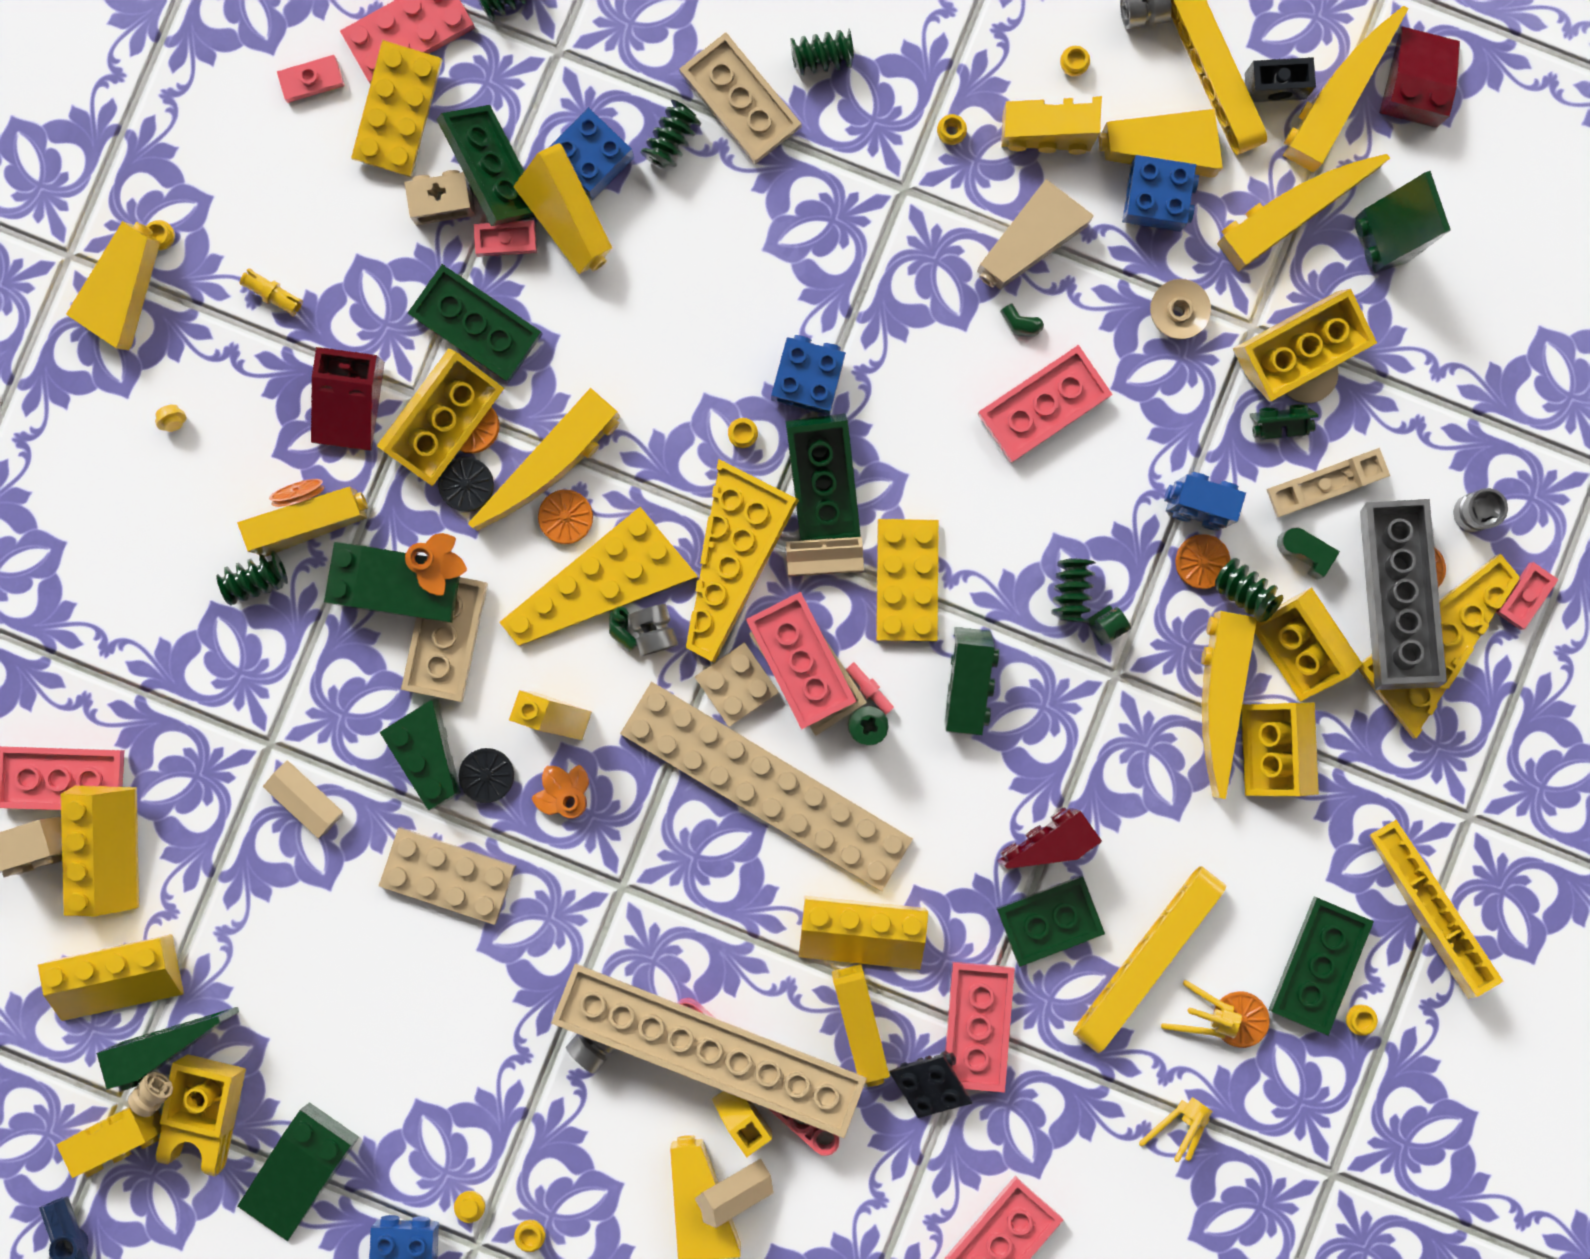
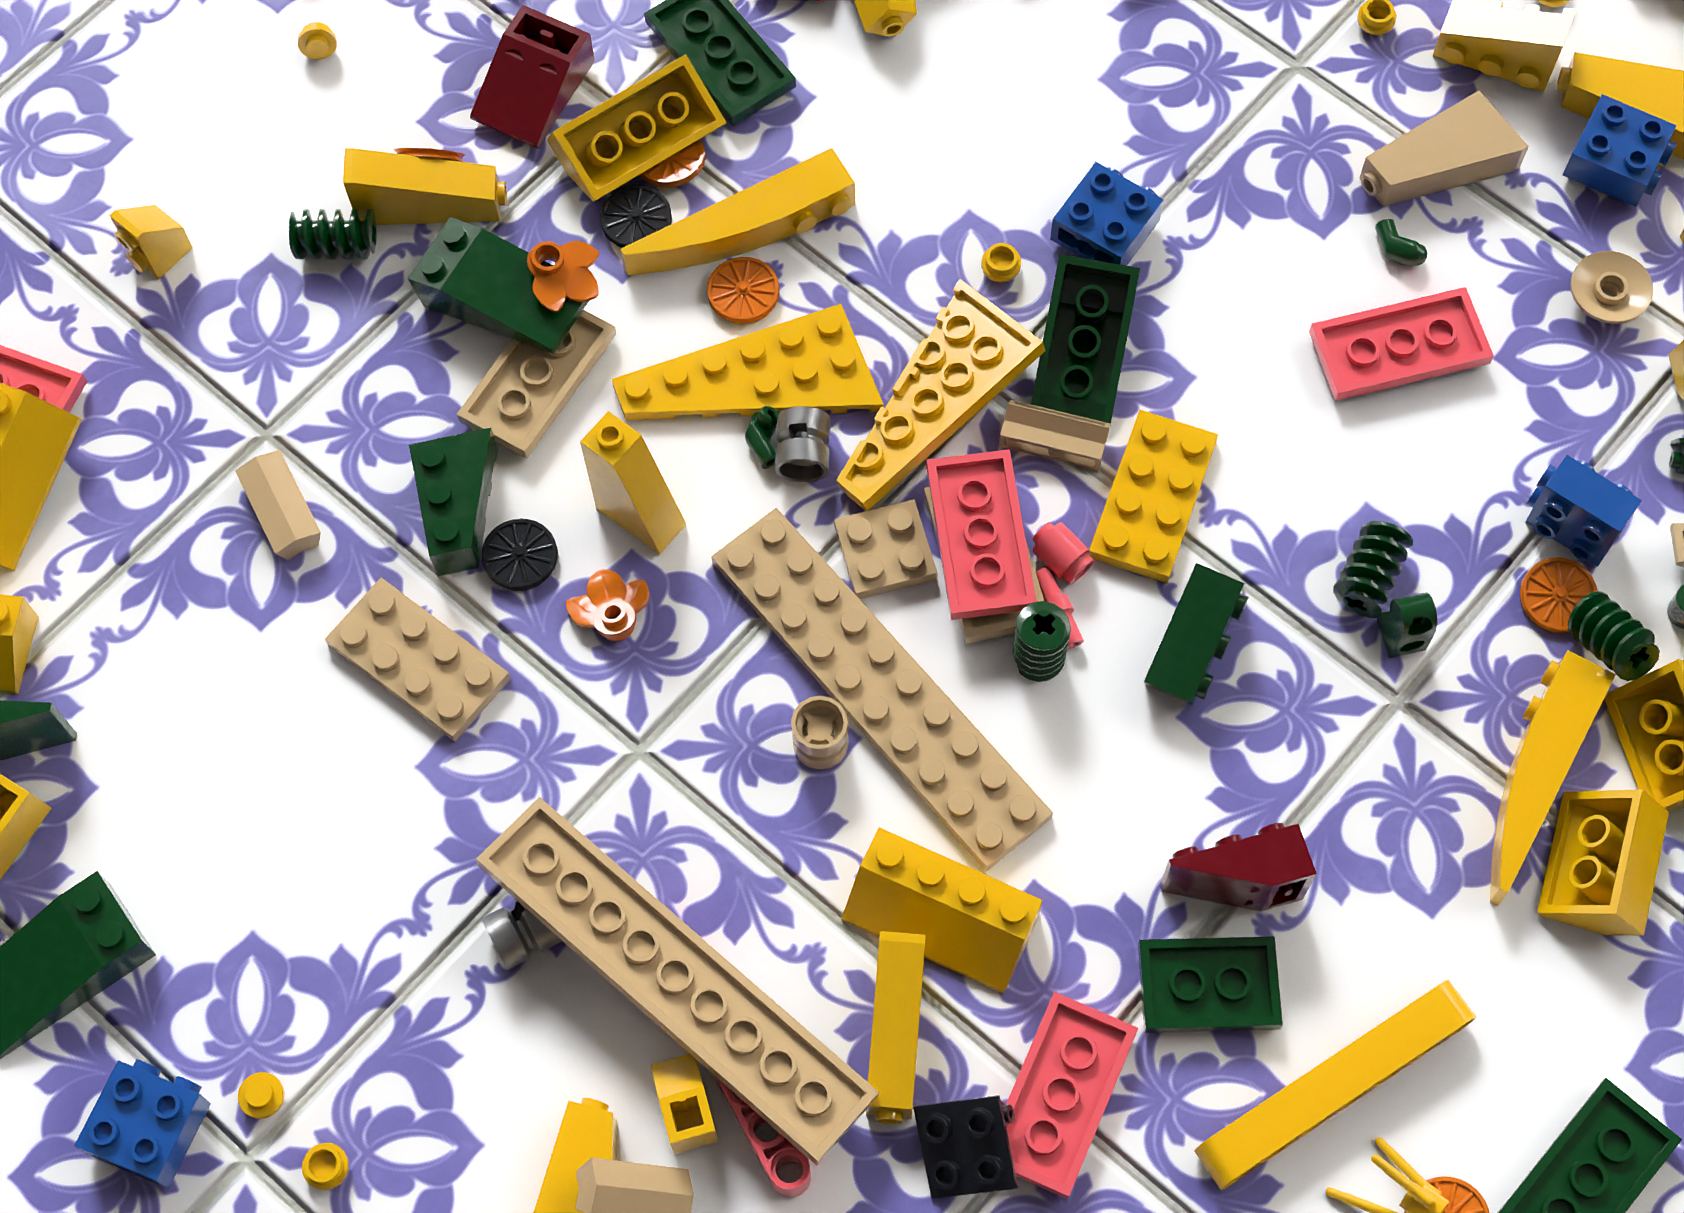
camera: 25 degrees right, 20 degrees down
(120, 628) = (151, 237): none -> yellow slope
(741, 840) = (820, 732): none -> tan wheel
(859, 648) = (1062, 552): none -> coral brick

